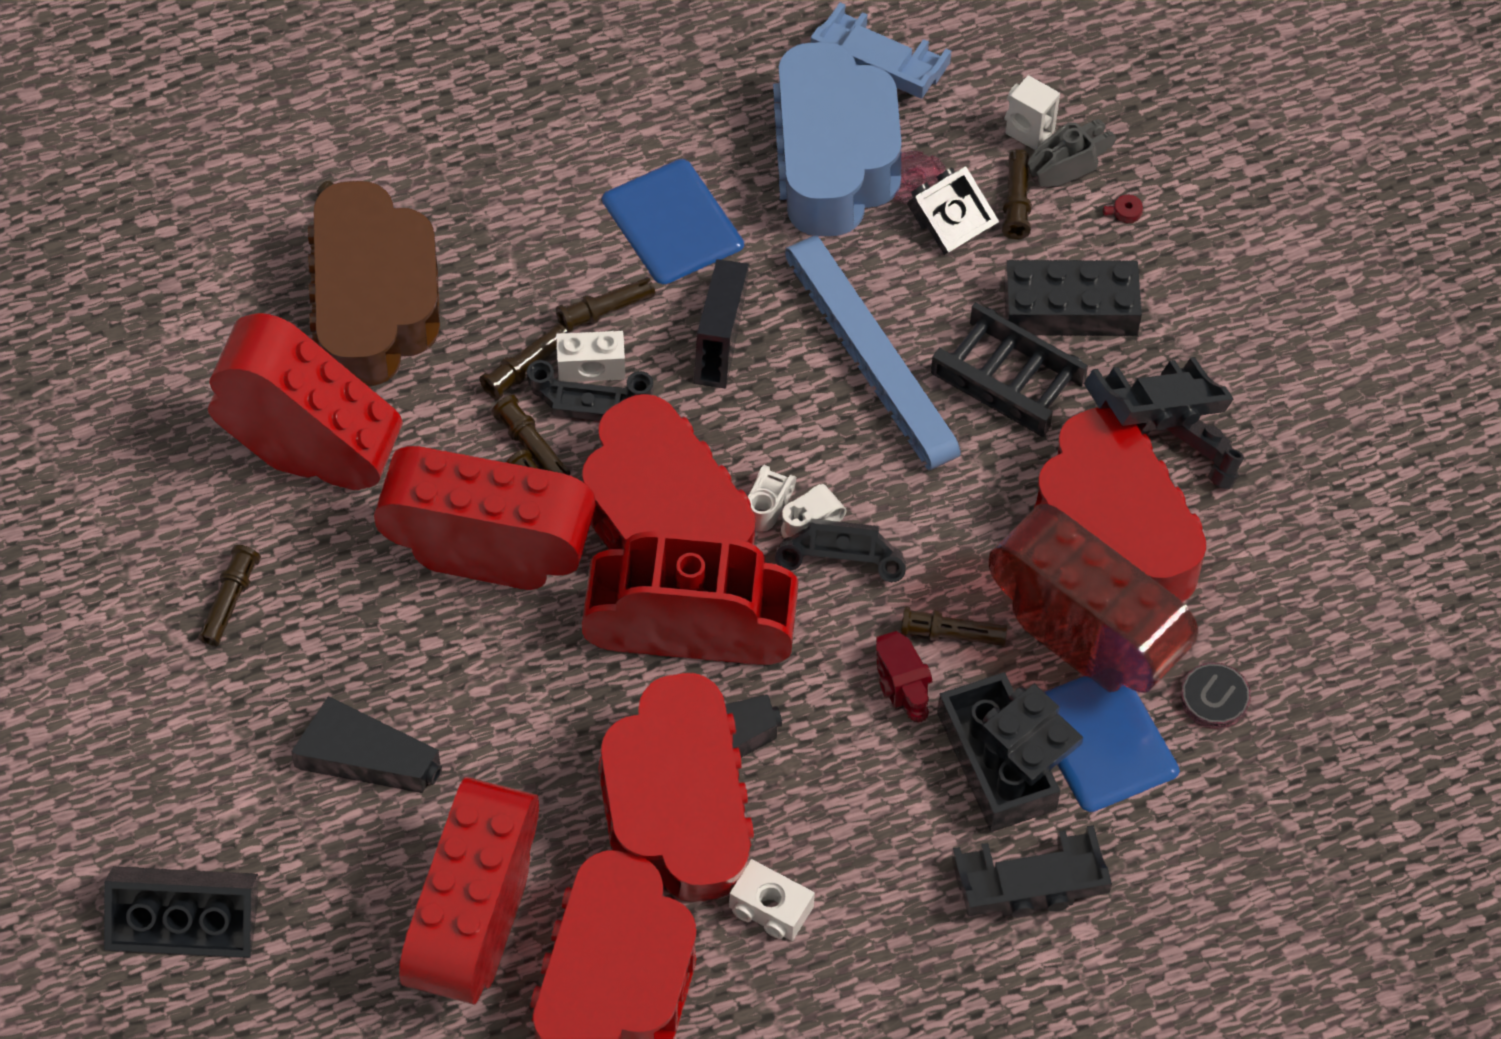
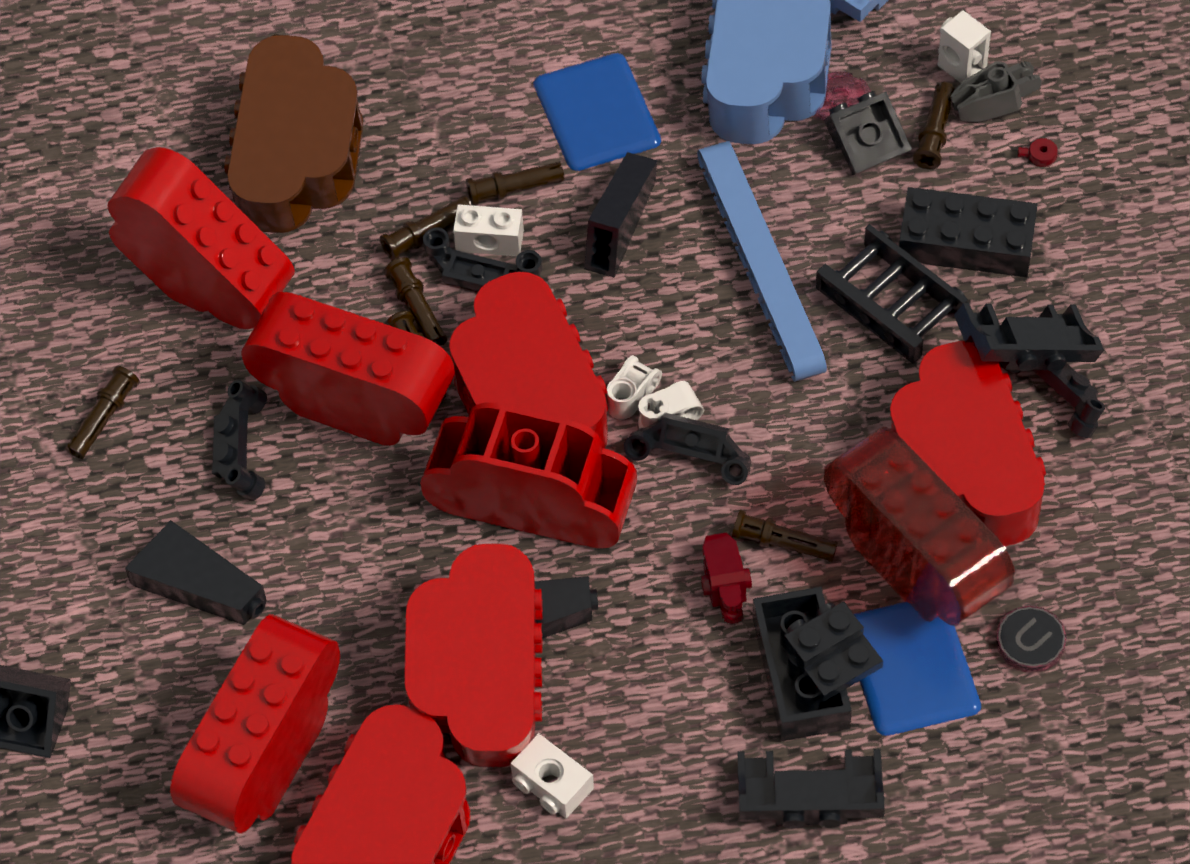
camera: 15 degrees right, 0 degrees up
(370, 604) = (231, 439): none -> black plate

